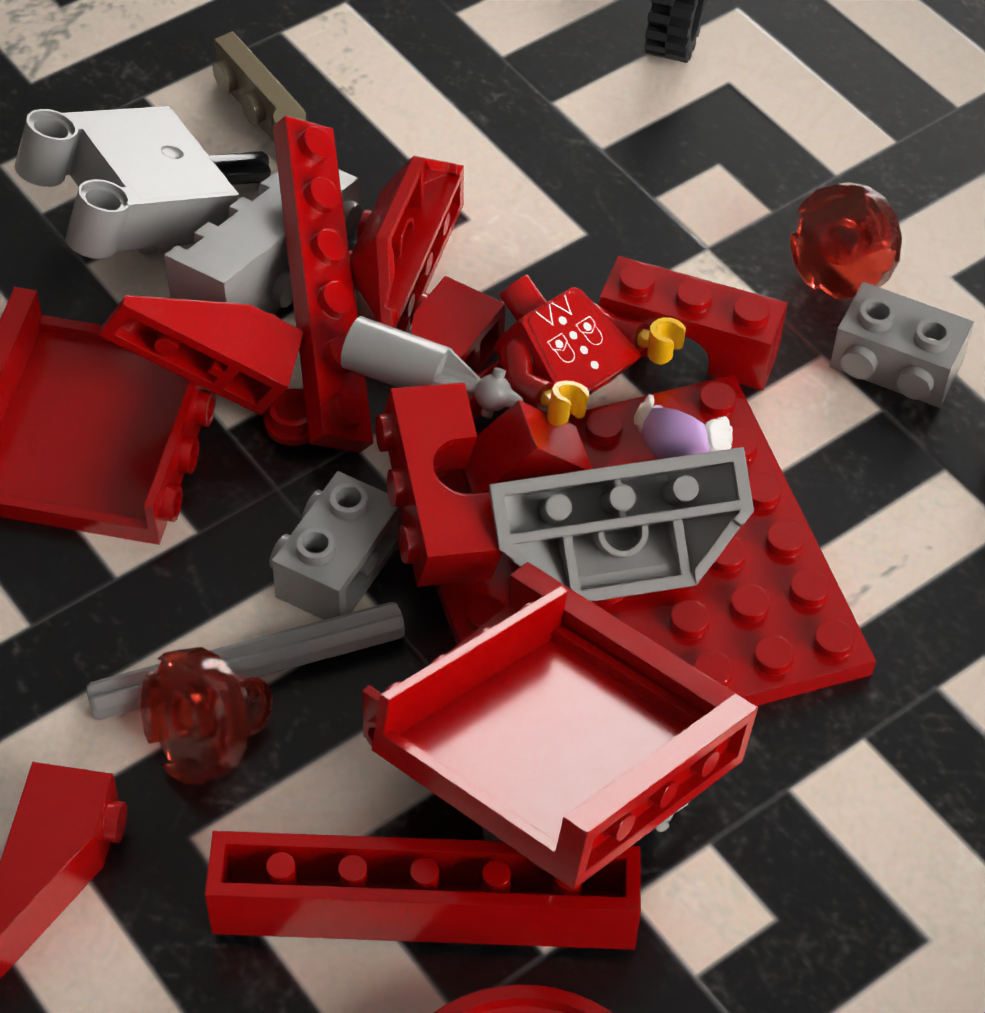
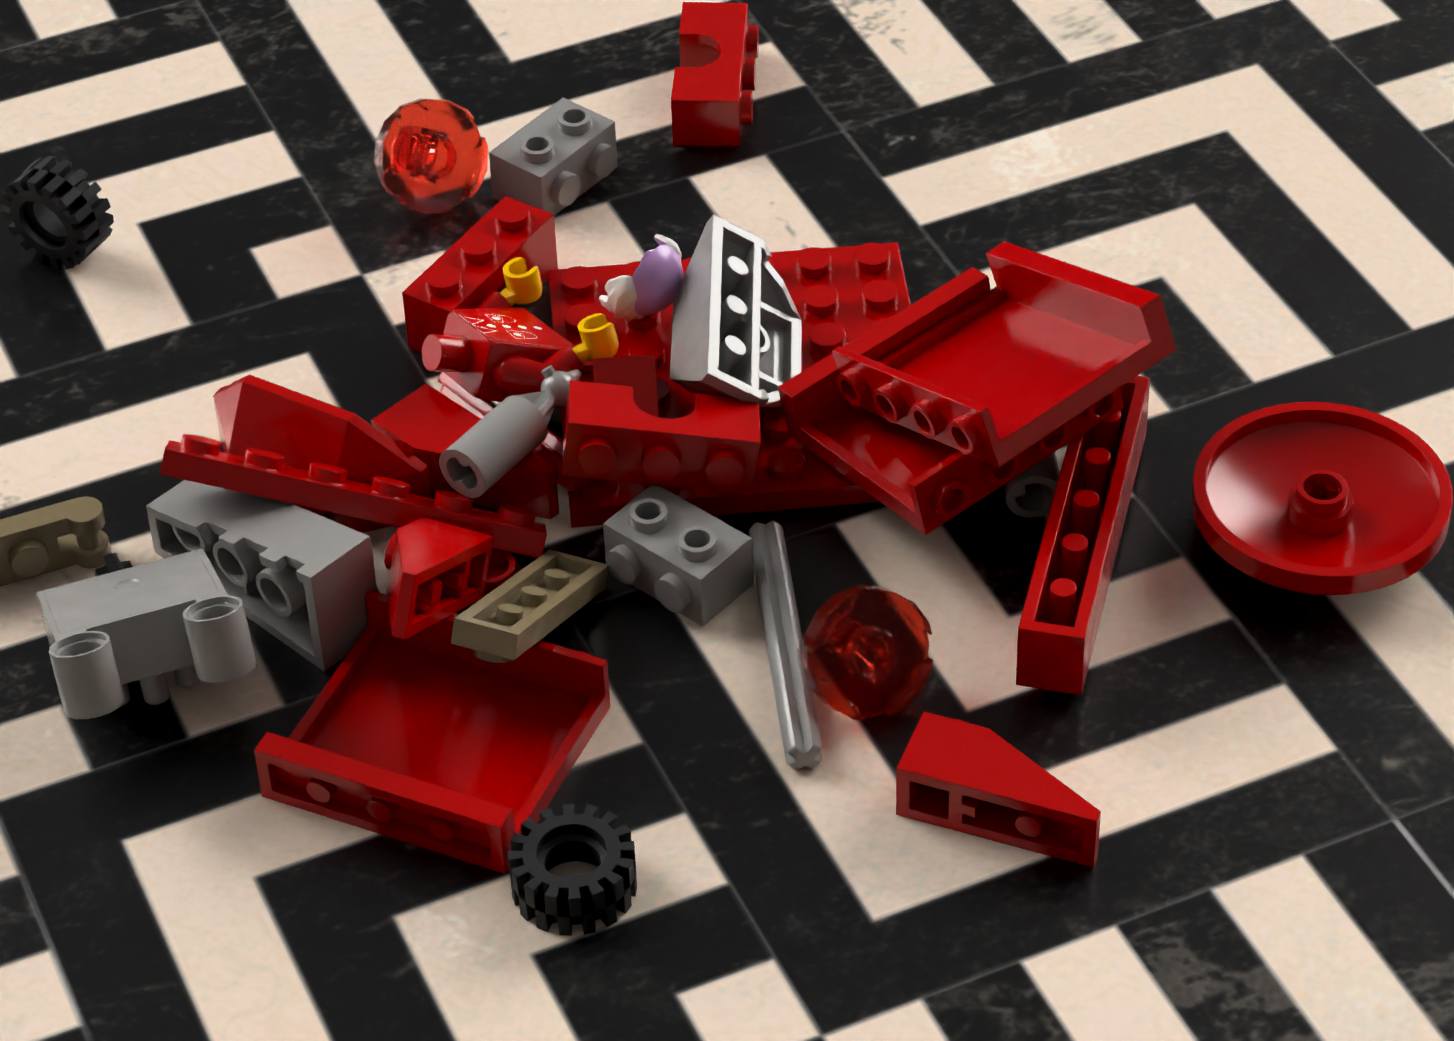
camera: 75 degrees left, 10 degrees down
(204, 432) = (528, 606): none -> dark tan plate

